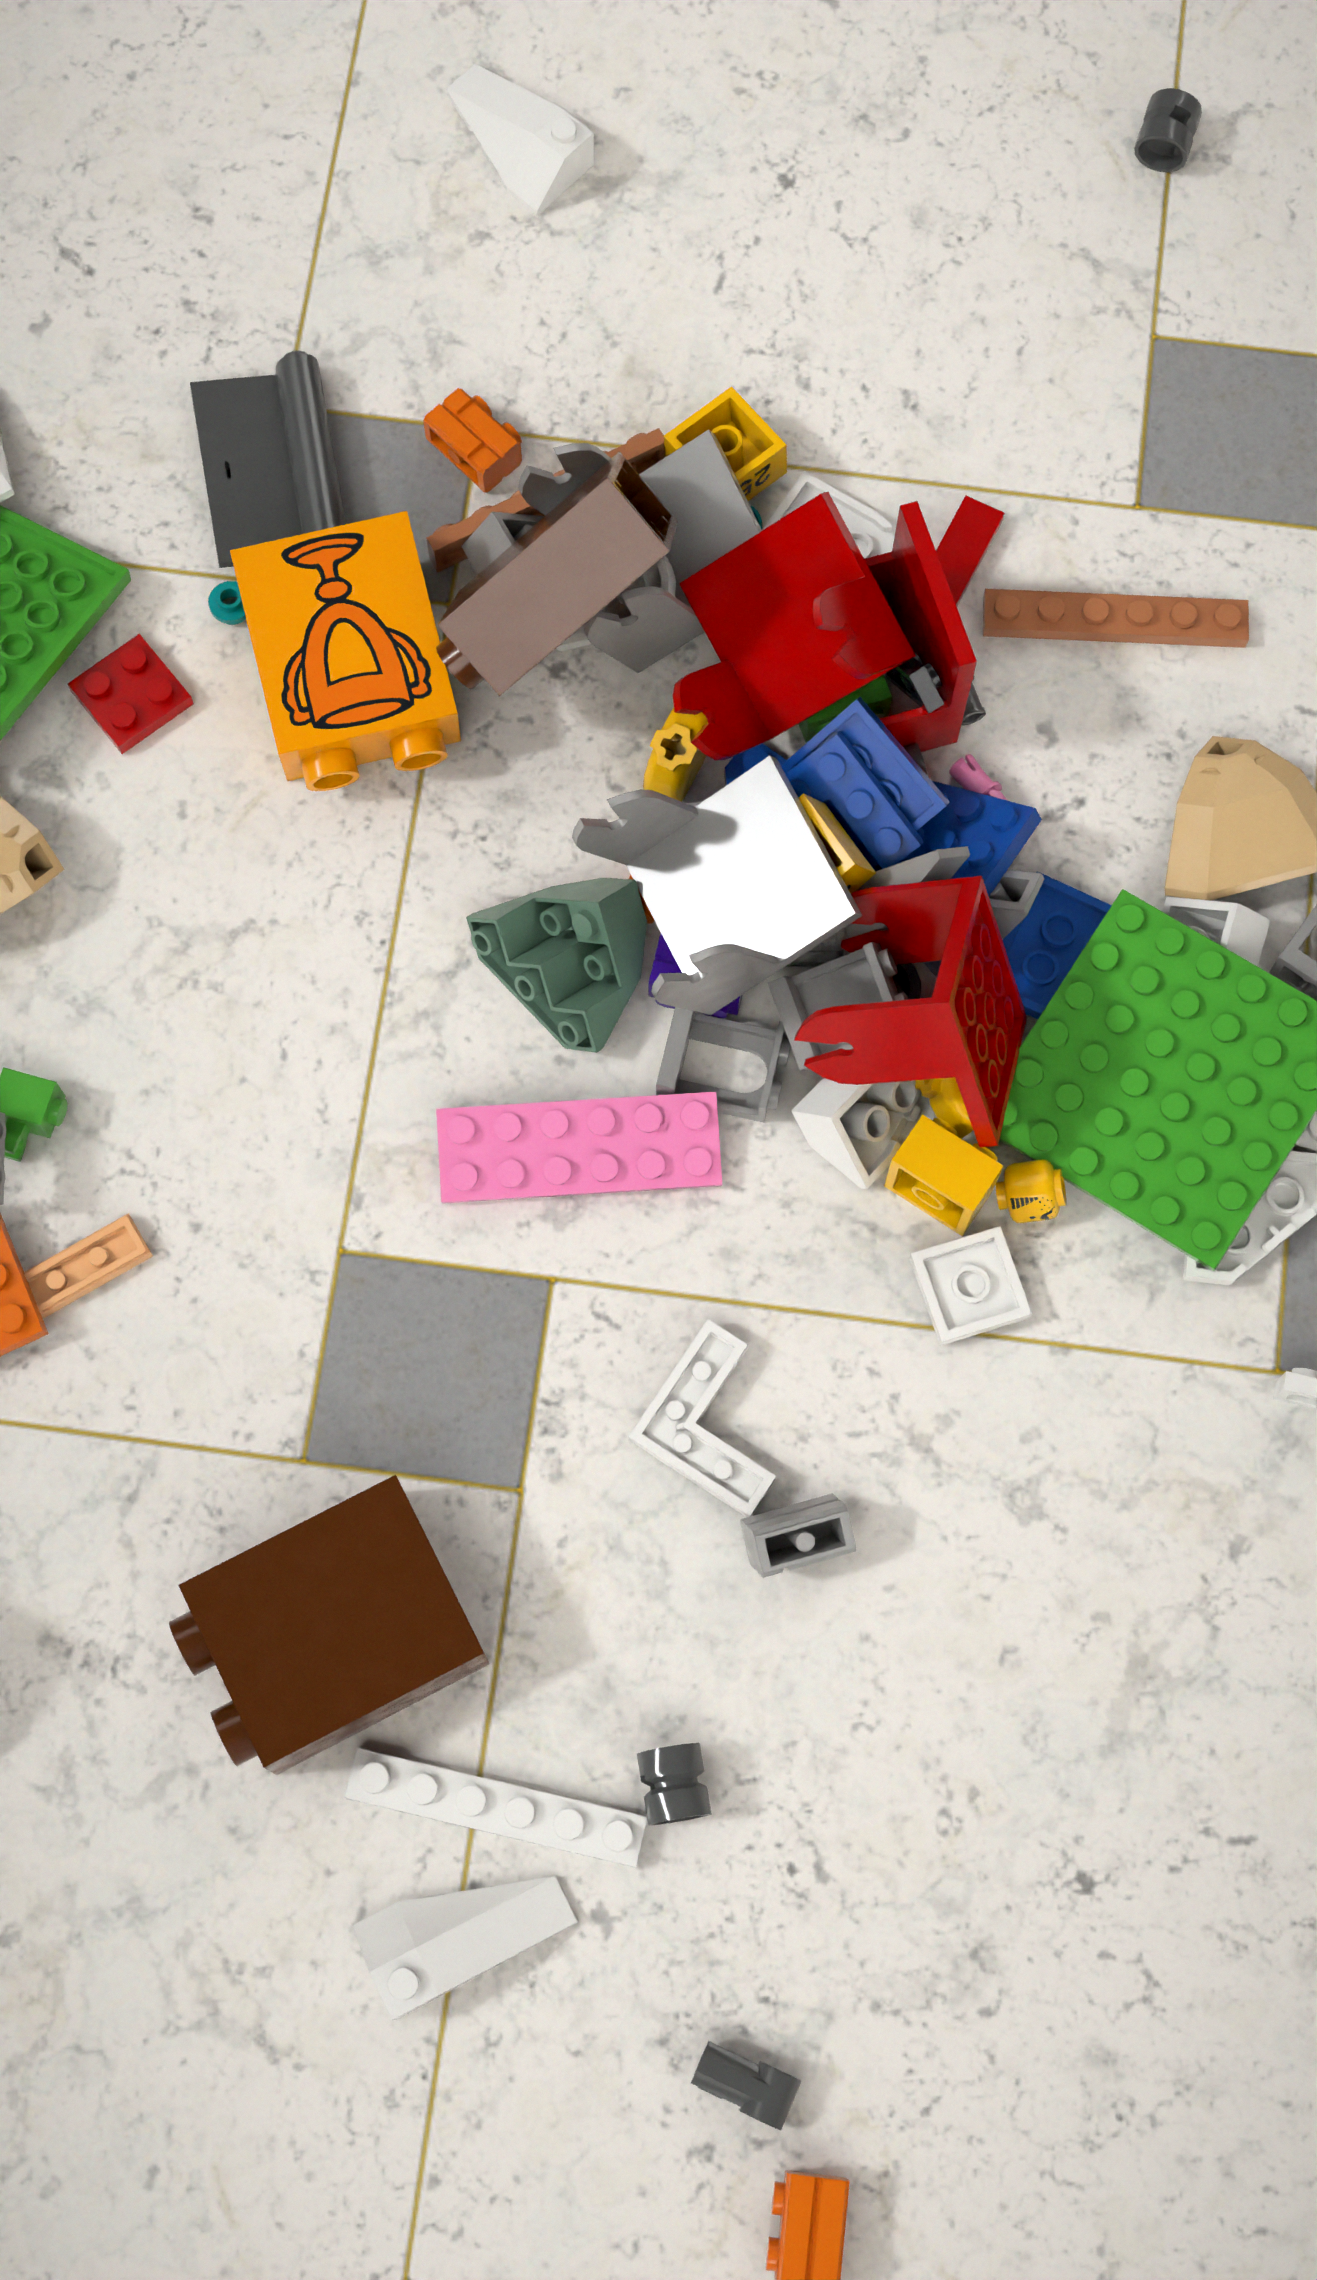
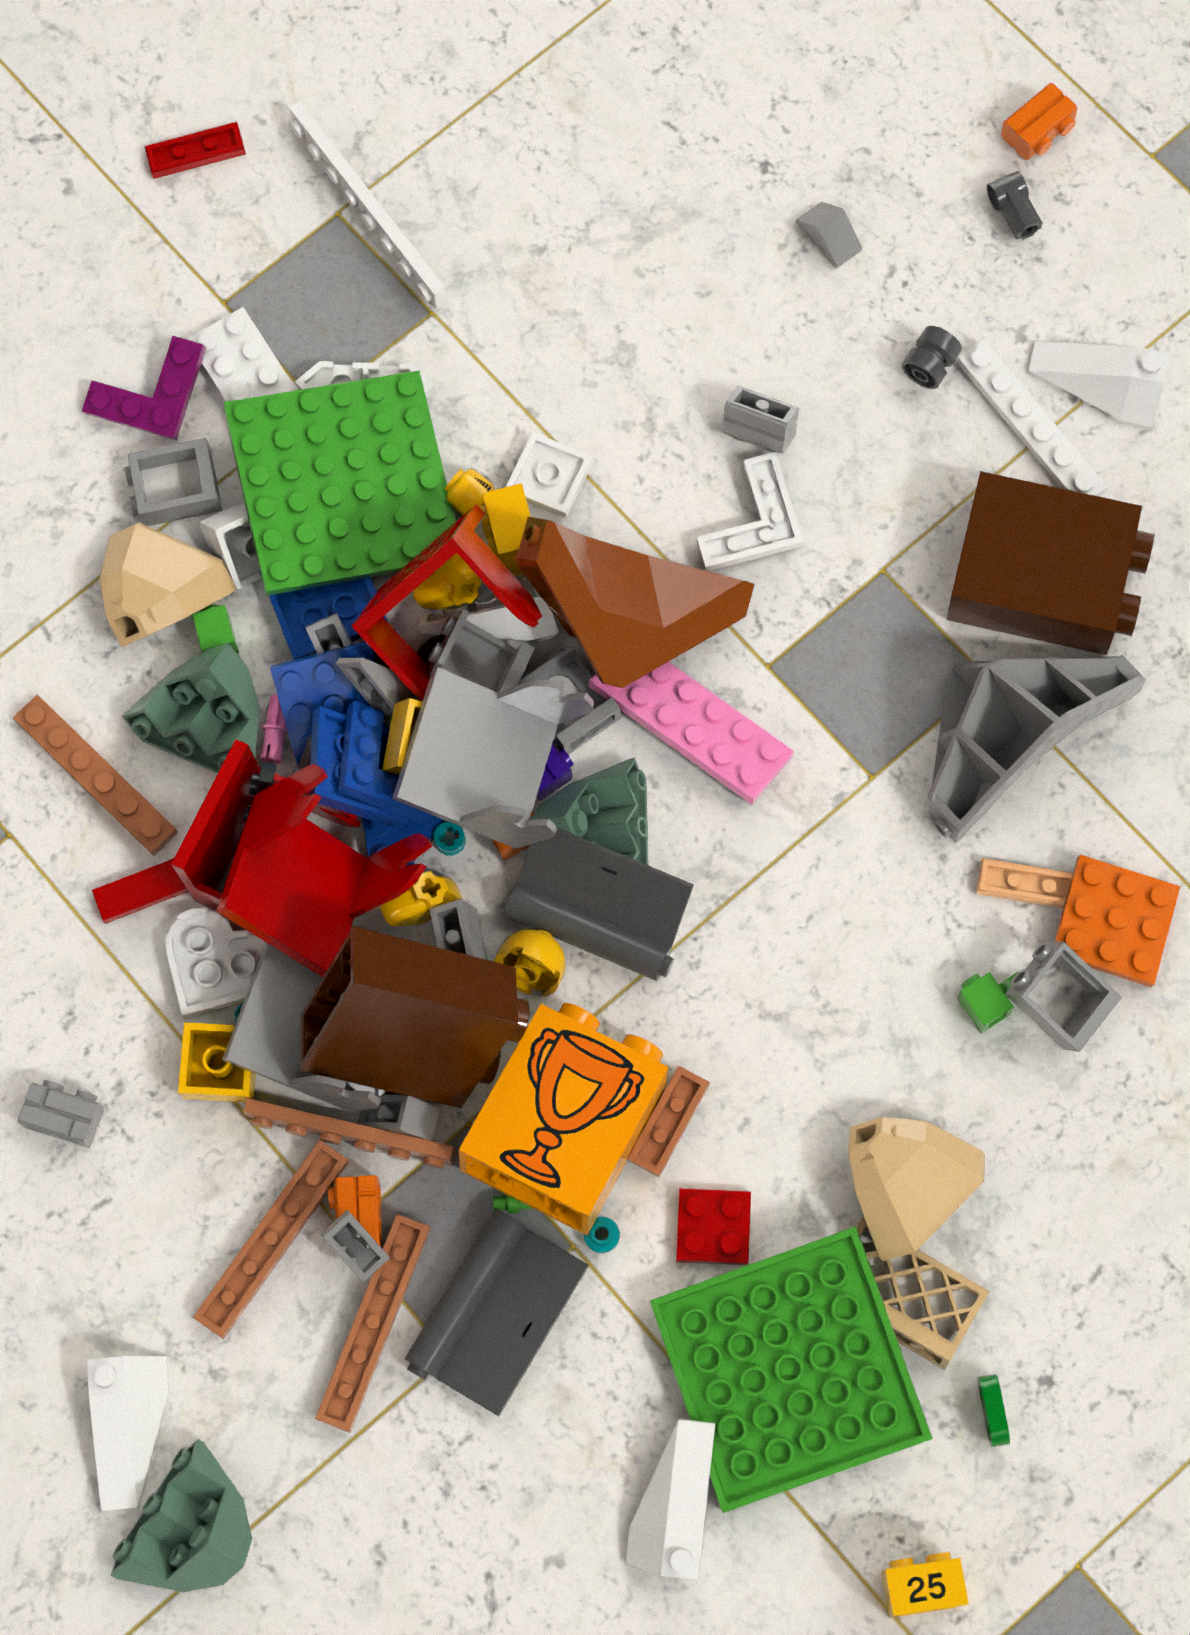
camera: 130 degrees left, 0 degrees up
(215, 1420) = (1008, 717): none -> light grey panel
(253, 747) = (668, 1121): none -> nougat plate
(375, 372) = (373, 1324): none -> nougat plate
(382, 96) = (189, 1530): none -> sand green brick
(441, 388) = (354, 1246): none -> light grey slope
(494, 875) = (600, 902): none -> dark grey door
(518, 779) = (537, 960): none -> yellow cylinder
(532, 357) = (271, 1239): none -> nougat plate
(603, 735) = (458, 928): none -> light grey brick
(754, 1188) = (624, 604): none -> dark orange panel
(828, 310) = (60, 1113): none -> light grey brick
(932, 1854) = (831, 232): none -> light grey slope
(1072, 750) = (200, 709): none -> sand green brick
(1140, 835) = (214, 627): none -> bright green brick

